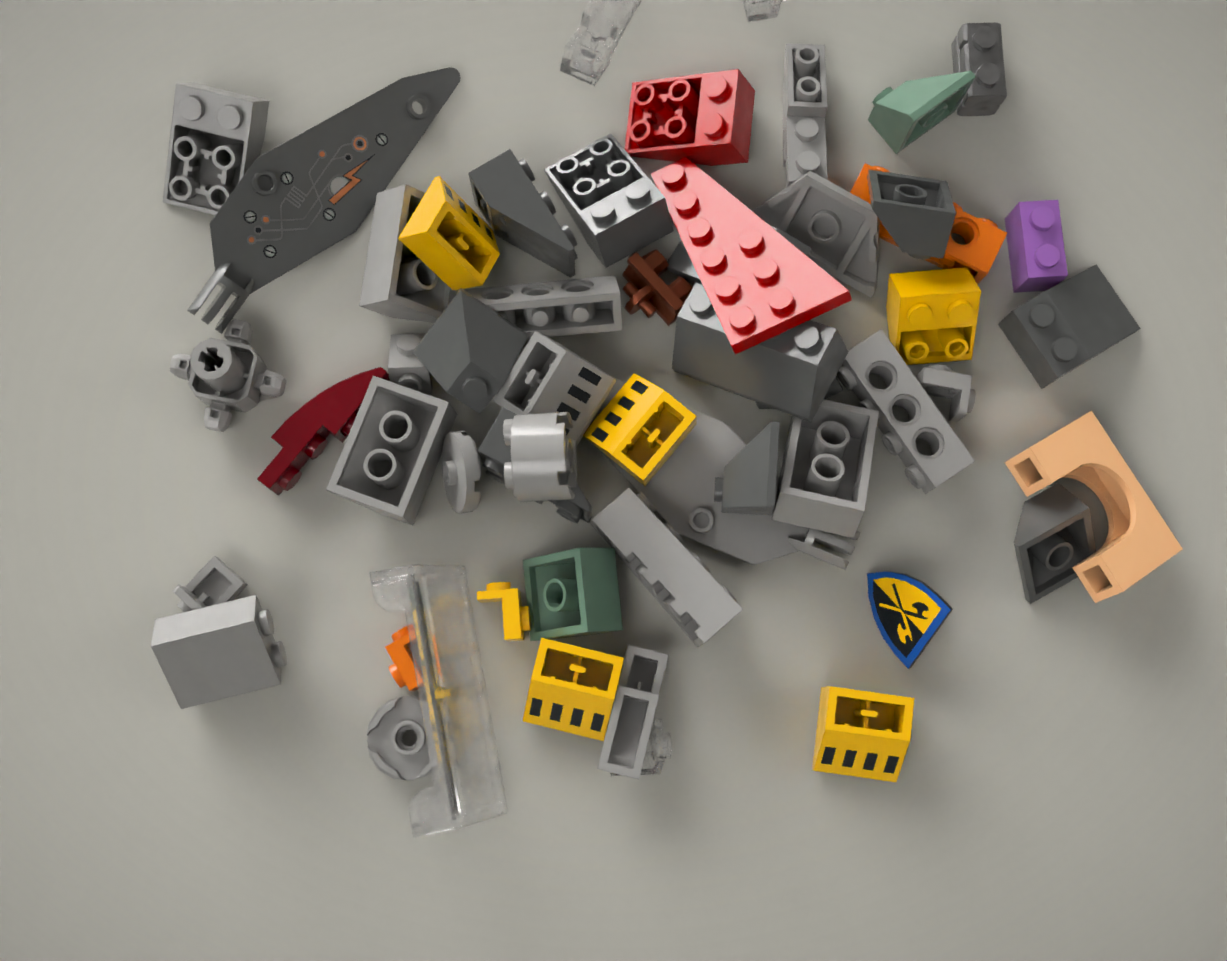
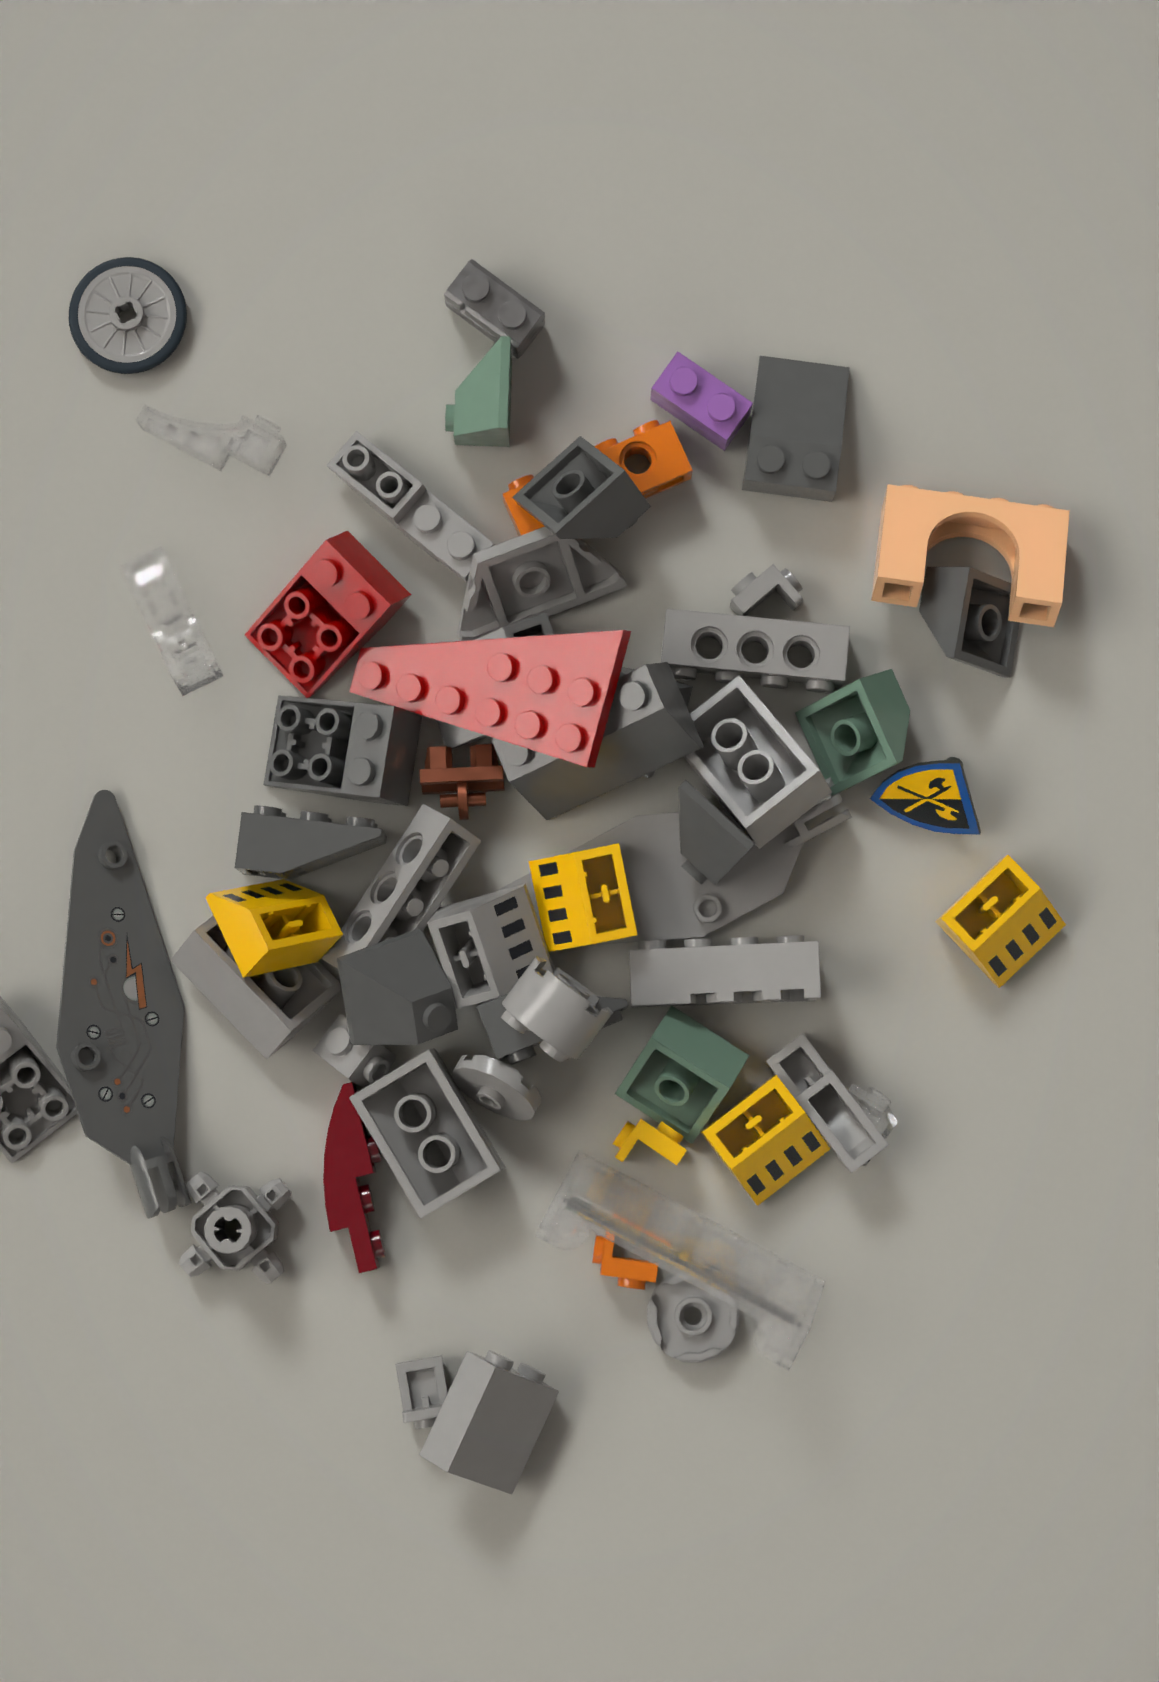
camera: 45 degrees left, 5 degrees up
(909, 524) = (857, 729): none -> sand green slope
(933, 314) = (688, 548): yellow slope -> none

